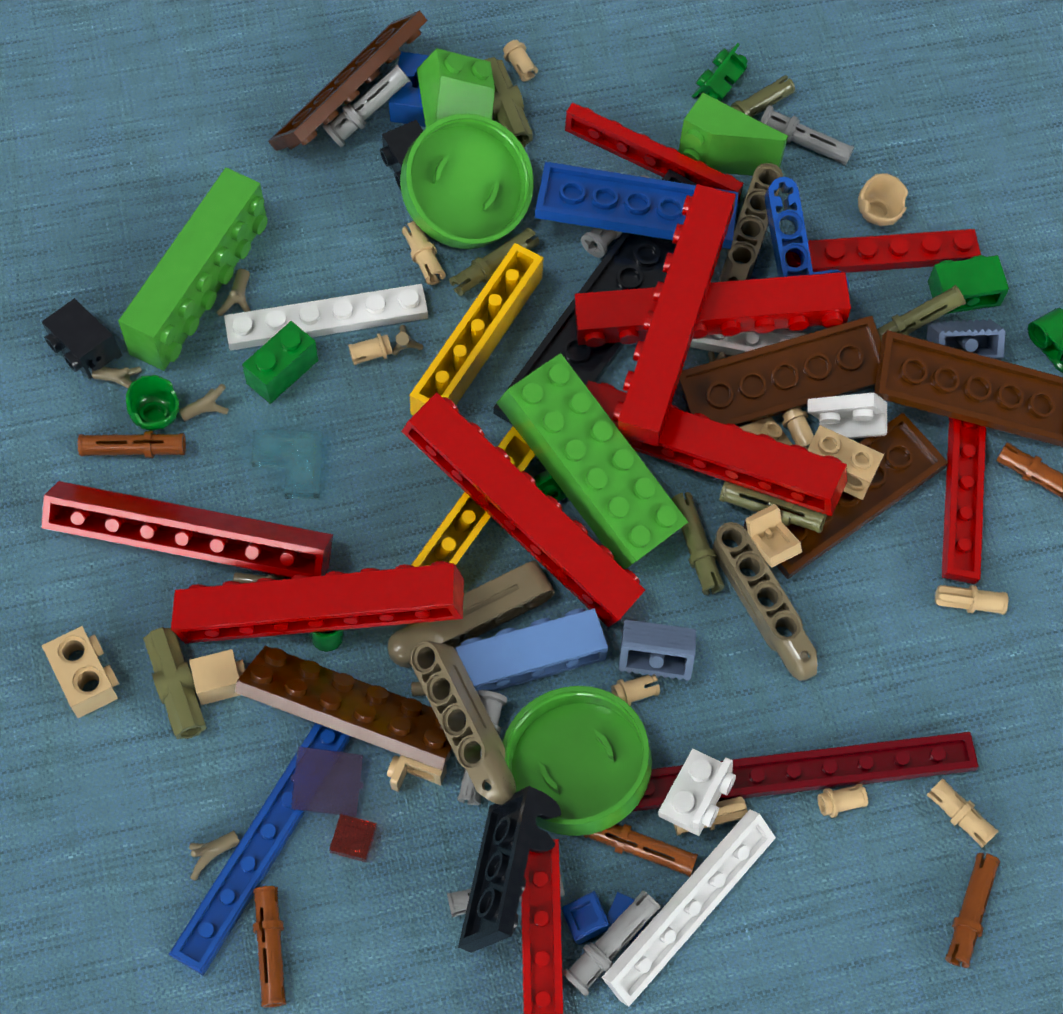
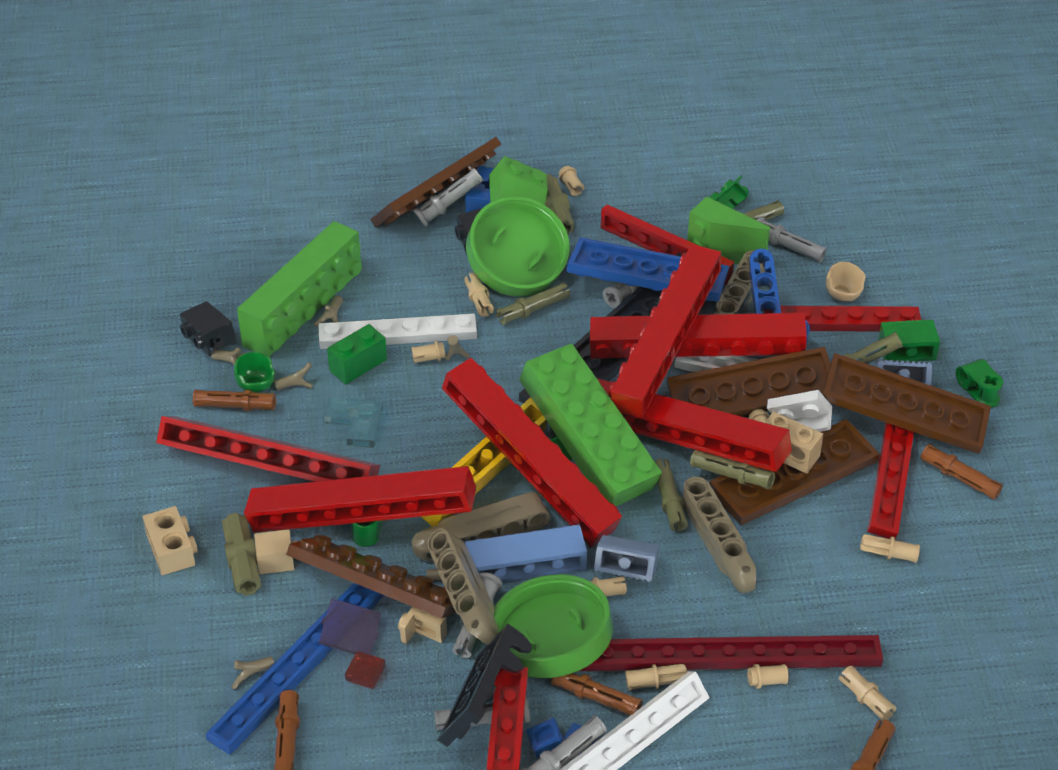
camera: 10 degrees right, 20 degrees down
(480, 328) = (524, 334): yellow brick -> none
(696, 792) = (647, 653): white bracket -> none
(772, 536) = (727, 486): tan bracket -> none

